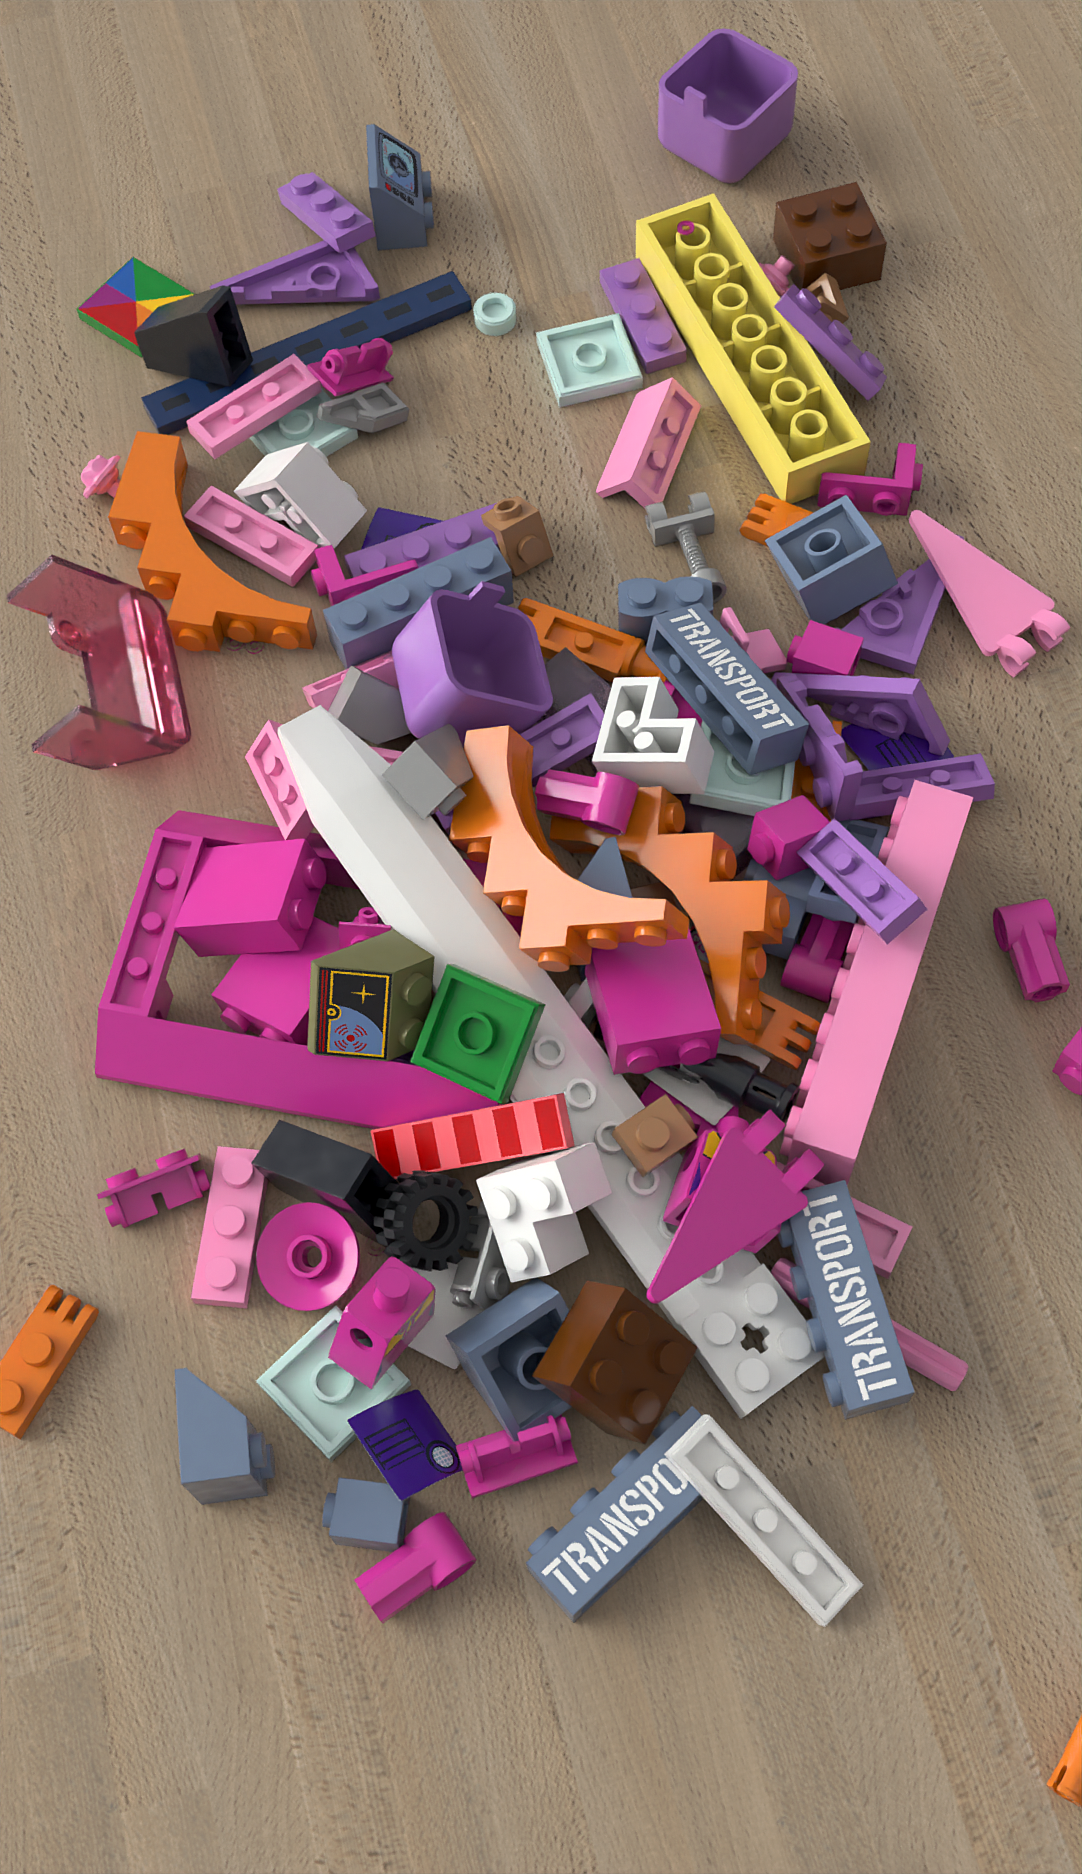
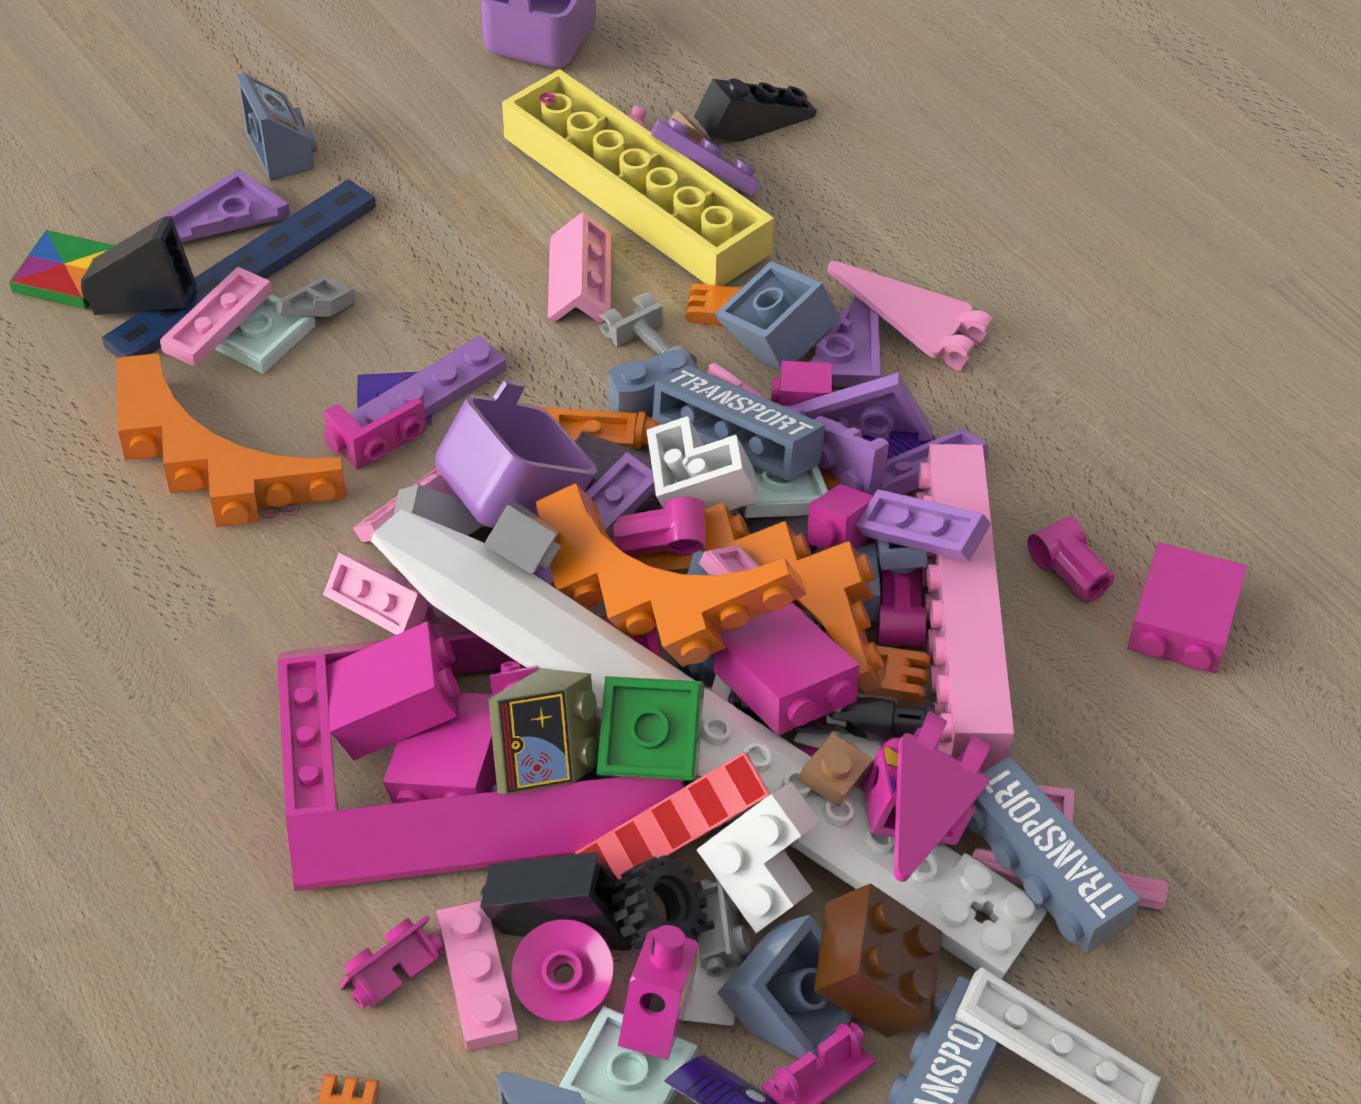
camera: 25 degrees left, 15 degrees down
(101, 476) = (92, 406): bright pink plant -> none
(126, 661) = (173, 542): clear pink windscreen -> none
(251, 536) = (256, 420): bright pink plate -> none
(303, 492) = (293, 368): white brick -> none
(326, 212) = (215, 157): medium lavender plate -> none
(354, 367) = (294, 266): dark pink hinge -> none
(373, 620) = (410, 446): sand blue brick -> none
(494, 314) = (399, 205): light aqua tile -> none
(518, 533) = (499, 357): medium nougat bracket -> none
(589, 360) = (498, 221): light aqua tile -> none
(637, 870) = (726, 560): none -> bright pink tile
(643, 316) = (530, 178): medium lavender plate -> none
(830, 235) = (662, 82): reddish brown brick -> none
(876, 494) = (801, 256): dark pink bracket -> none
(910, 289) = (748, 110): none -> black slope

